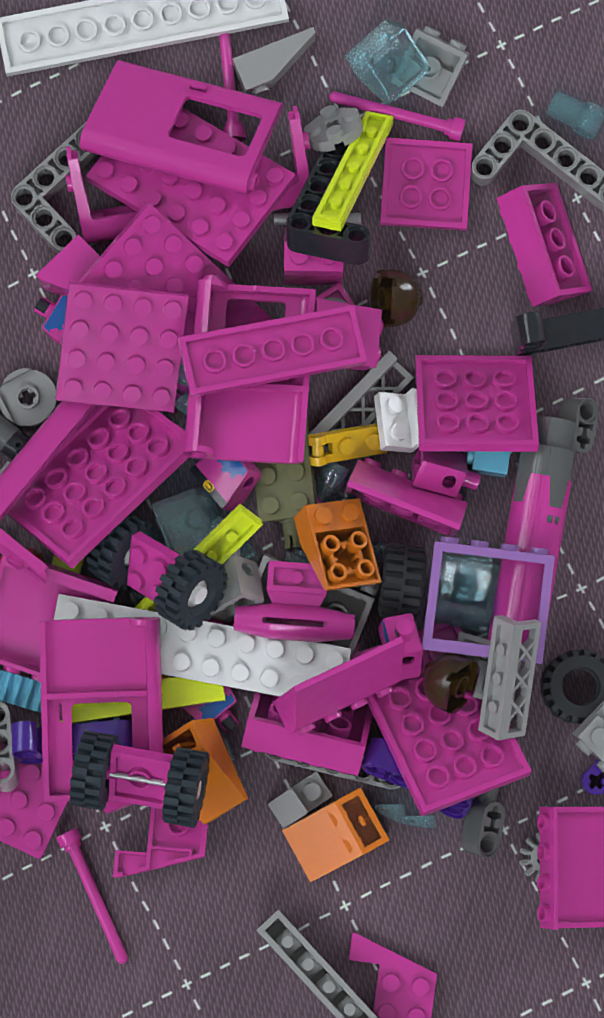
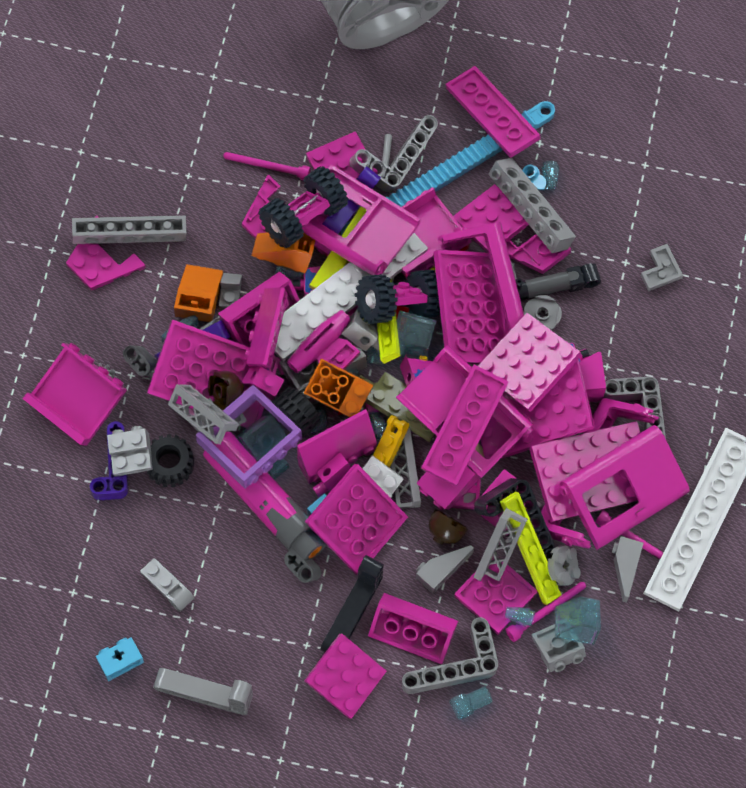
camera: 130 degrees right, 15 degrees down
(382, 209) = (493, 545): none -> light grey fence
(434, 129) = (520, 615): none -> clear light blue cone
(451, 268) = (441, 568): none -> light grey slope

